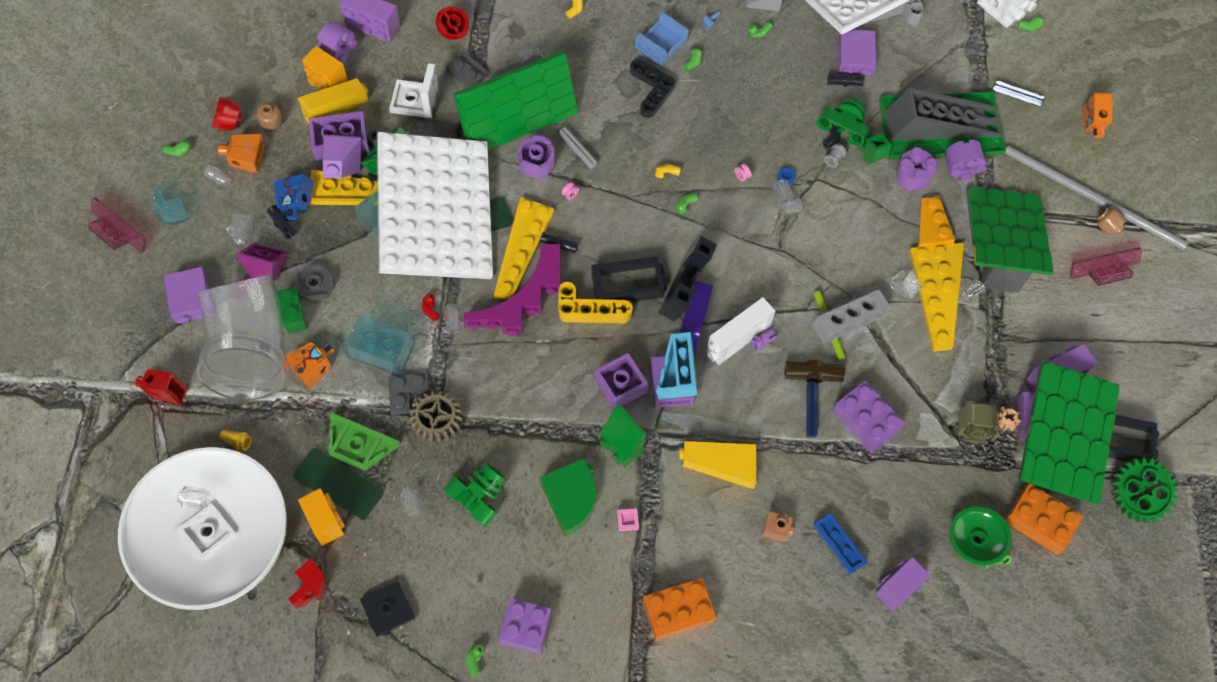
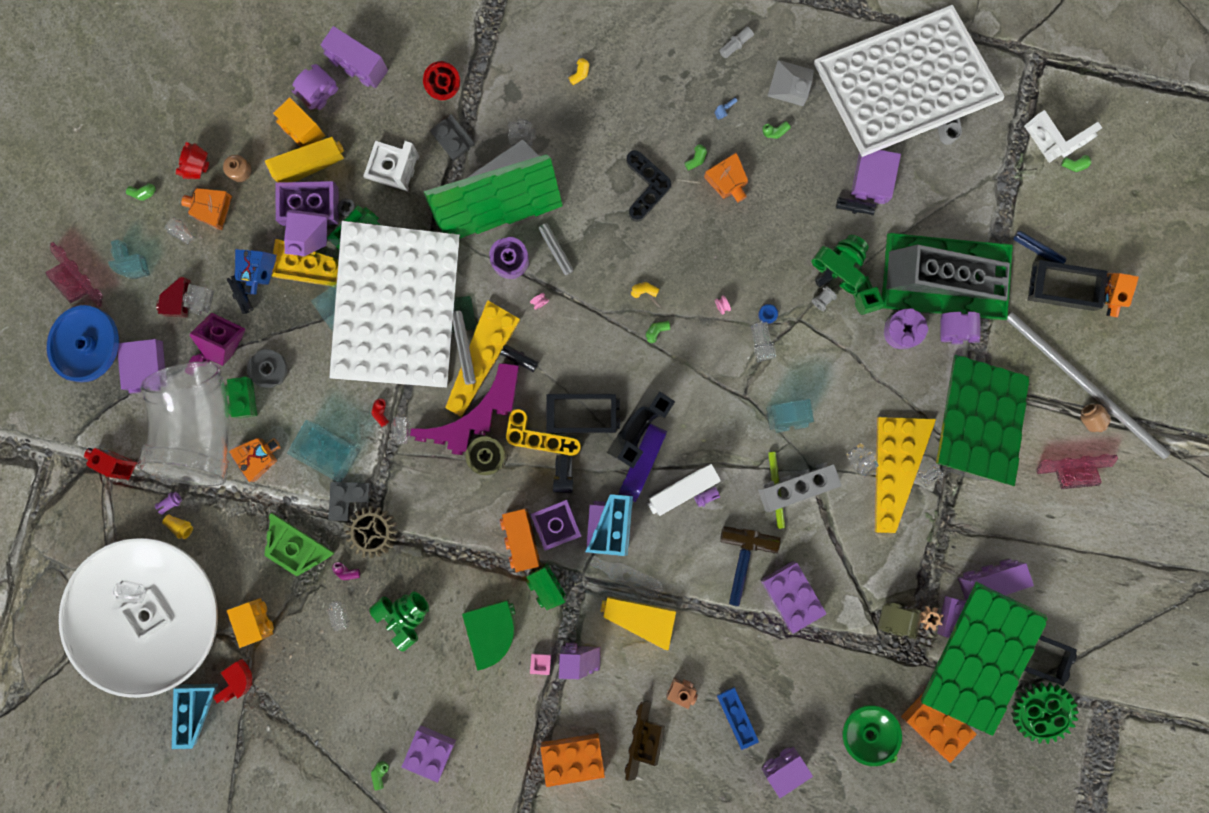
camera: 10 degrees right, 20 degrees up
(128, 281) = (82, 343): none -> blue dish
(215, 234) = (171, 299): none -> dark red slope
(224, 418) = (169, 502): none -> medium lavender pin
(264, 619) = (190, 710): none -> medium azure wedge
(342, 484) = (272, 584): clear green piece -> none
(387, 609) = (305, 714): black plate -> none
(411, 461) = (344, 573): none -> magenta arm
(504, 238) = (463, 348): none -> light grey axle
(538, 338) = (476, 450): none -> olive brick
(587, 397) = (520, 540): none -> orange brick
(620, 341) = (563, 475): none -> black piece
(662, 39) = (667, 127): medium blue panel -> none
(665, 503) = (578, 660): none -> medium lavender wedge
(725, 70) = (728, 178): none -> orange torso
(751, 581) = (645, 742): none -> dark brown bracket
(826, 252) = (790, 414): none -> clear light blue brick
(934, 224) = (909, 393): light orange wing -> none
(1027, 129) = (1037, 283): none -> black window

